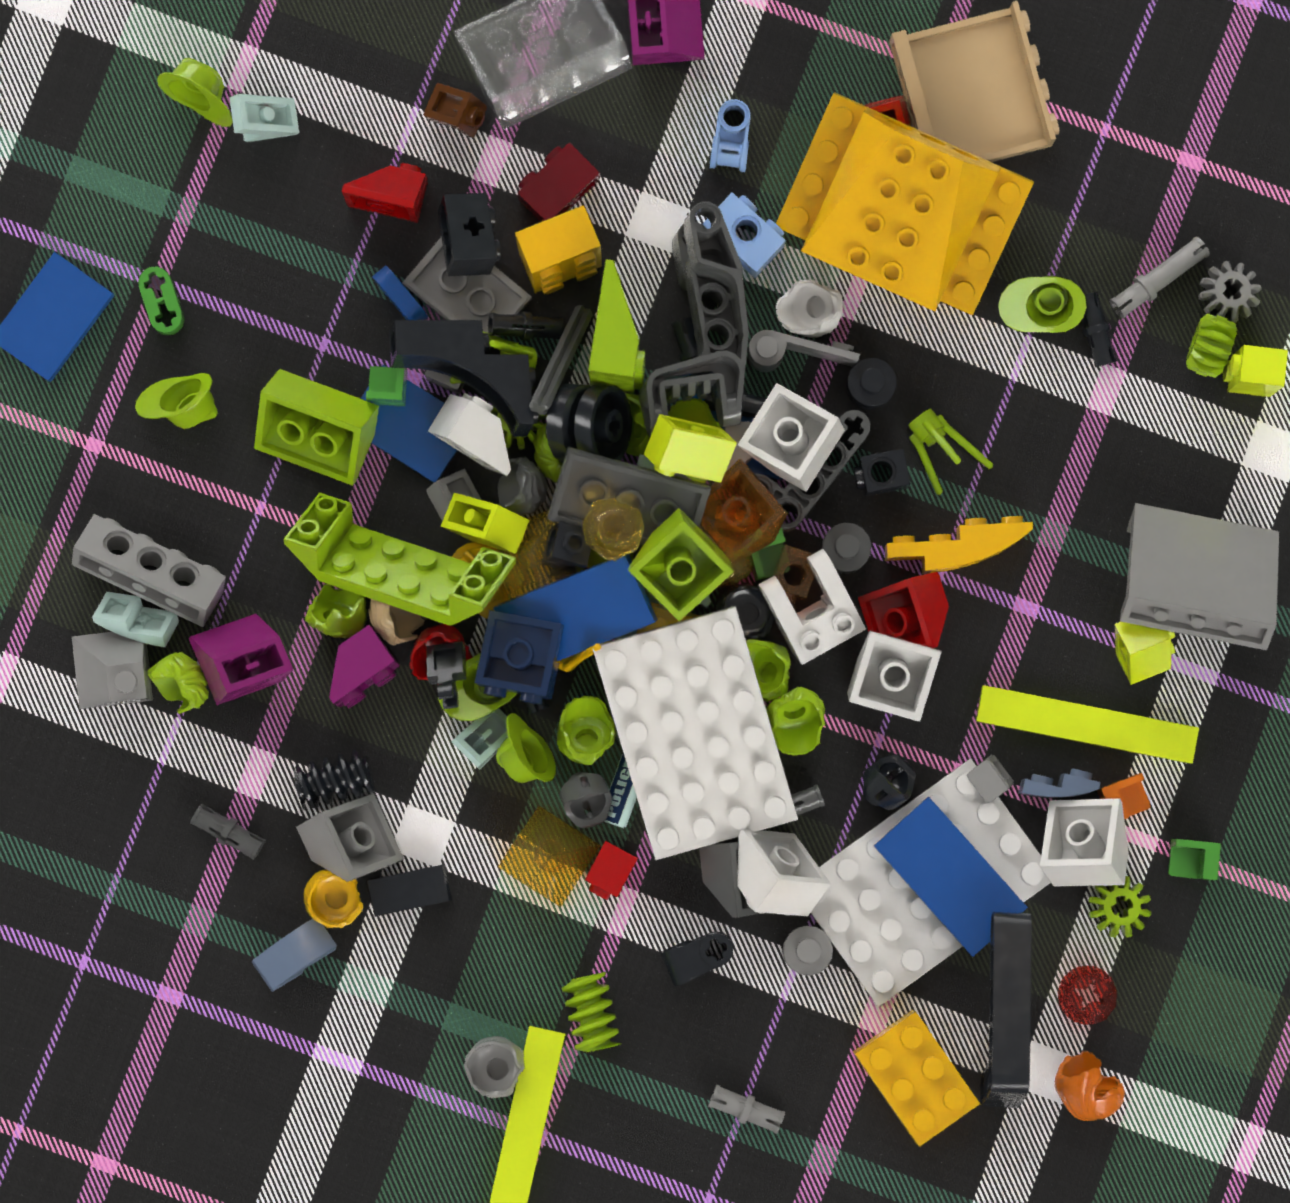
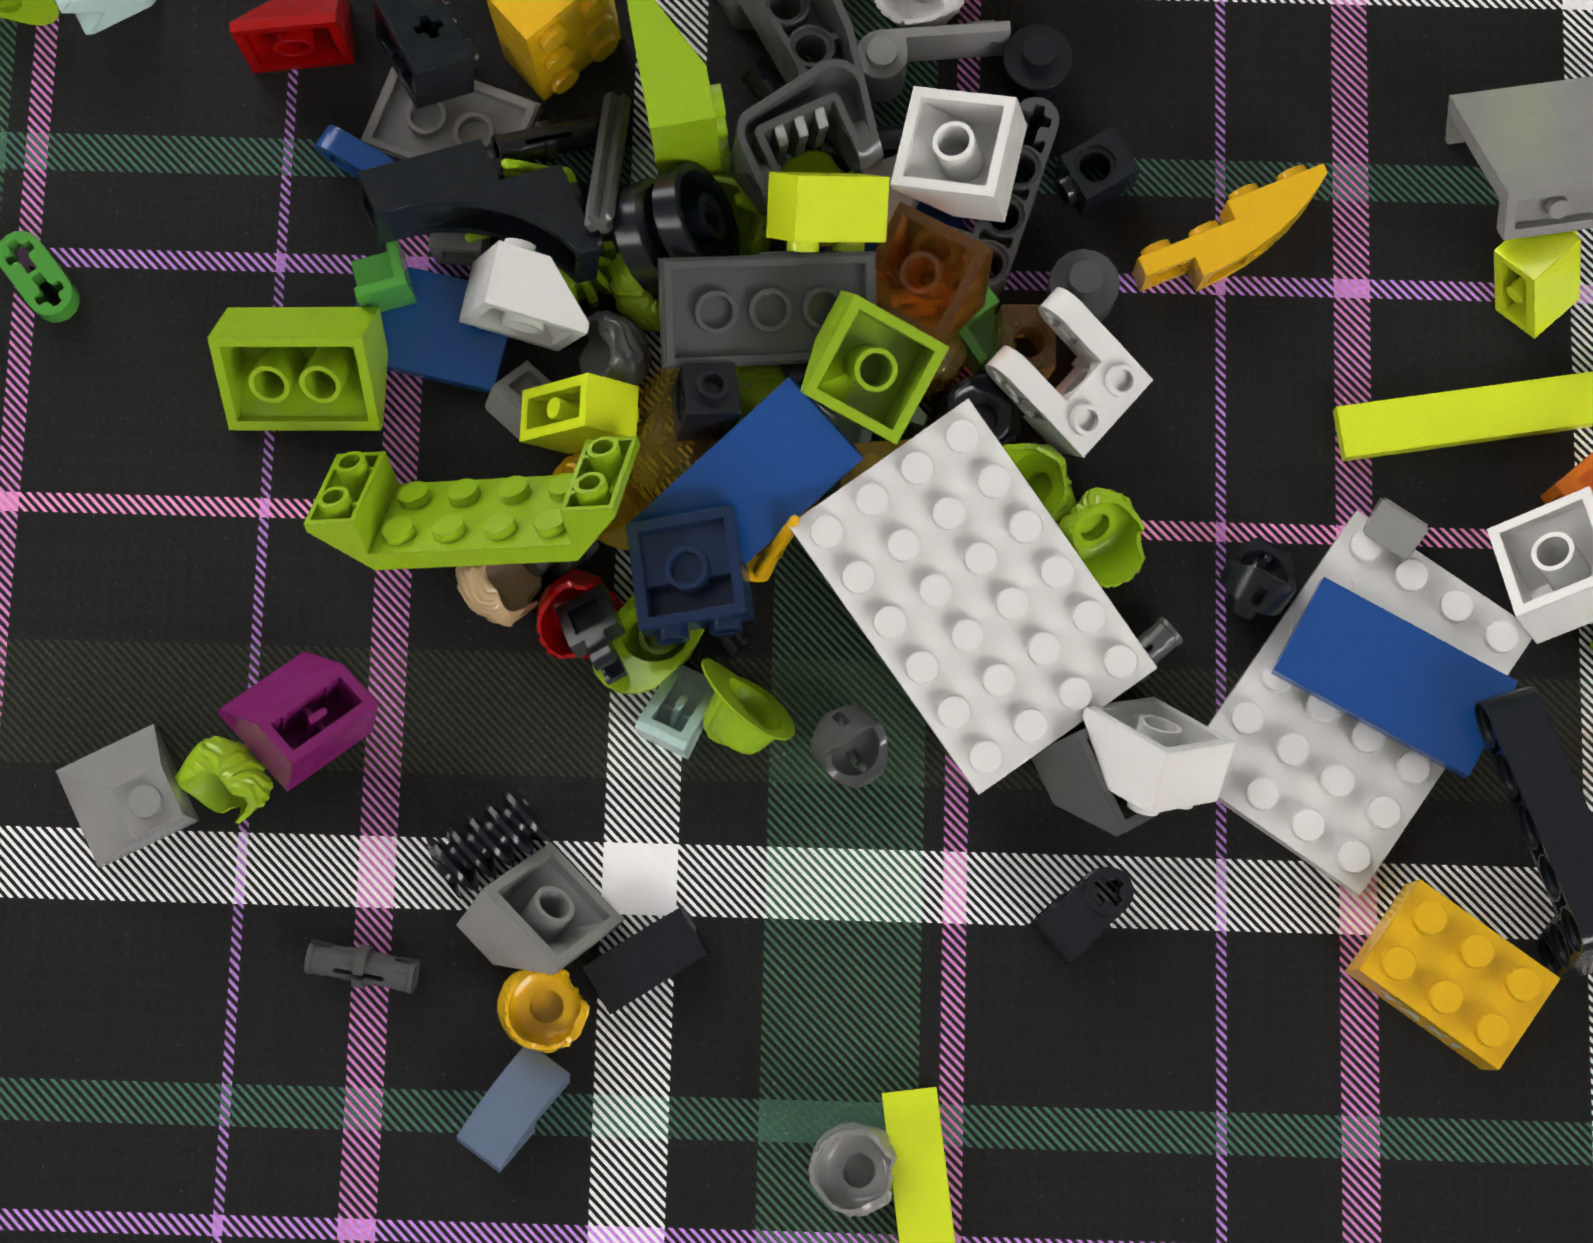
camera: 15 degrees left, 5 degrees down
(129, 618) = (127, 716): light aqua slope -> none
(156, 586) = (131, 639): light grey brick -> none
(180, 400) = (106, 397): lime piece -> none
(337, 612) = (417, 607): lime hair -> none
(360, 664) = (471, 668): magenta slope -> none
(549, 856) = (826, 845): clear yellow slope -> none
(585, 730) = (816, 650): lime hair -> none
(591, 1013) = (963, 1044): lime piece -> none
(610, 871) = (919, 834): red brick -> none
(612, 528) = (758, 345): clear yellow hair -> none
(622, 796) = (900, 723): slope -> none
(746, 1109) = (1229, 1104): light grey pin -> none
(807, 950) = (1233, 850): light grey piece -> none
(893, 675) = (1214, 427): white slope -> none
(908, 610) = (1198, 350): red slope -> none
(930, 429) = (1137, 97): lime plant -> none
(1069, 785) = (1501, 501): sand blue slope -> none

